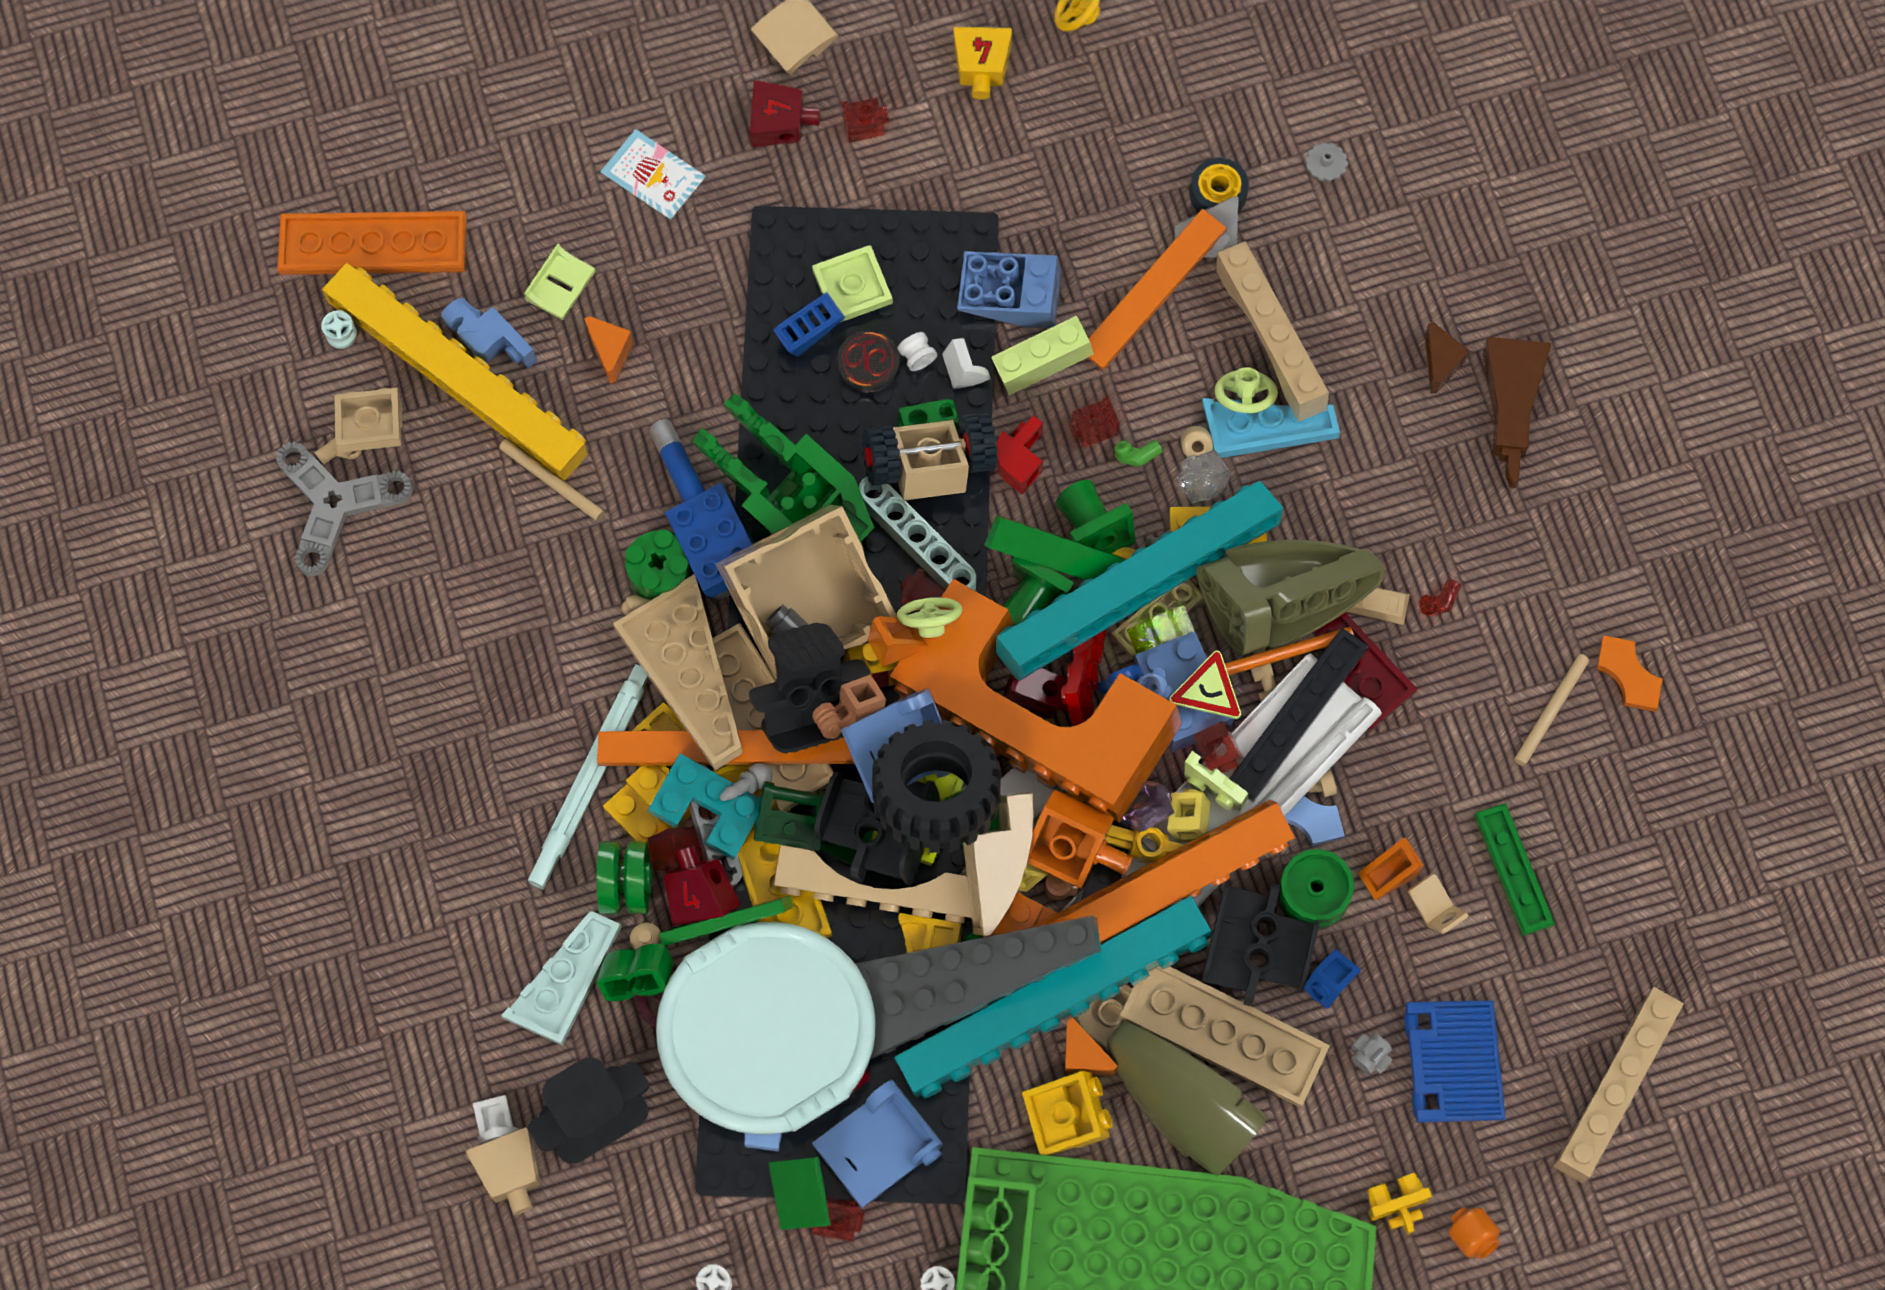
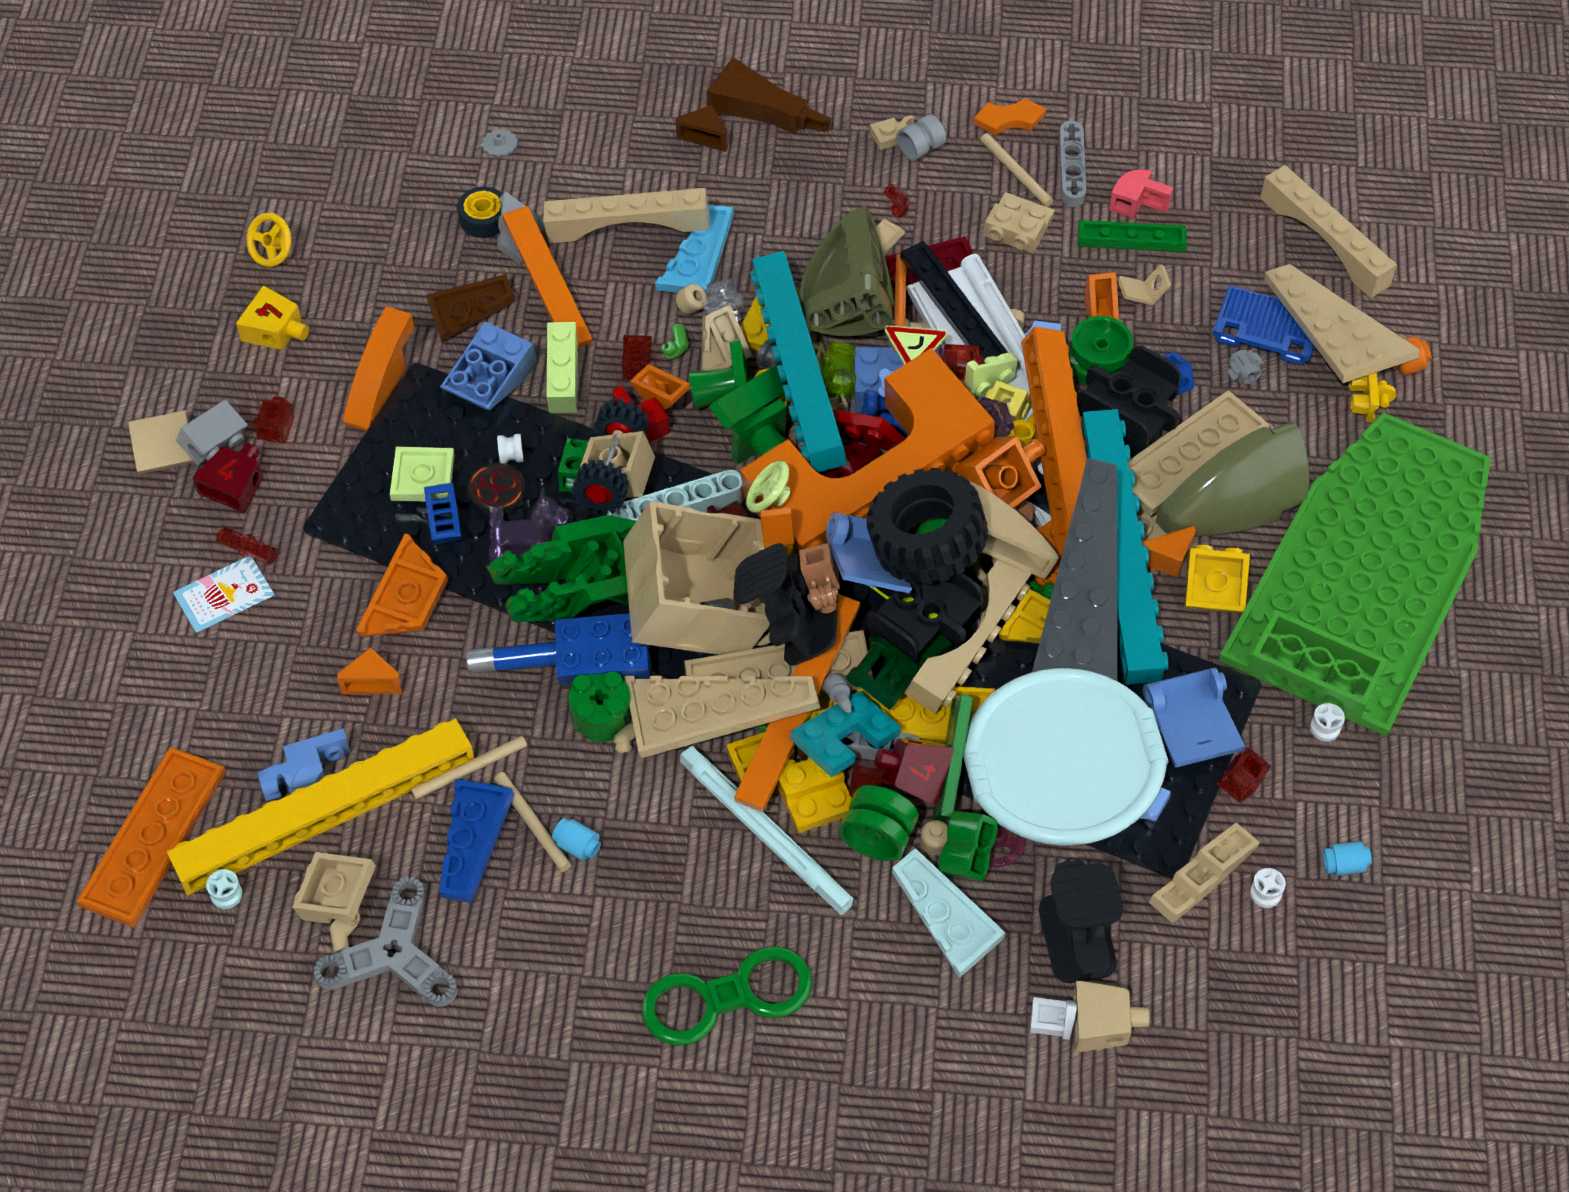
camera: 70 degrees left, 15 degrees down
(404, 813) = (726, 995): none -> green bar
(489, 514) = (474, 829): none -> blue wing
(508, 609) = (576, 839): none -> medium azure brick
(516, 562) = (534, 824): none -> tan bar
(565, 269) = (280, 684): yellowish green piece -> none
(708, 167) = (246, 545): none -> clear red pin
(709, 1215) = (1204, 872): none -> tan slope
(715, 333) = (404, 594): none -> orange wing
(799, 1193) = (1218, 785): green piece -> none
(815, 72) = (211, 432): none -> light grey brick
(816, 412) = (522, 534): none -> clear purple animal
(959, 184) = (379, 368): none -> orange slope
(960, 367) = (539, 423): white tile -> none
(1060, 459) = (657, 383): none -> orange slope
(1089, 229) = (468, 304): none -> reddish brown wing
(1151, 496) = (717, 331): none -> tan wing
(1246, 384) = (662, 249): yellowish green piece -> none
(1464, 1146) = (1341, 333): none -> tan wing
(1472, 739) = (1018, 222): none -> tan plate
(1539, 588) = (921, 137): none -> light grey wheel
(1540, 553) = (885, 131): none -> tan plate
(1576, 847) = (1137, 189): none -> coral brick
(1591, 769) = (1072, 163): none -> light grey beam

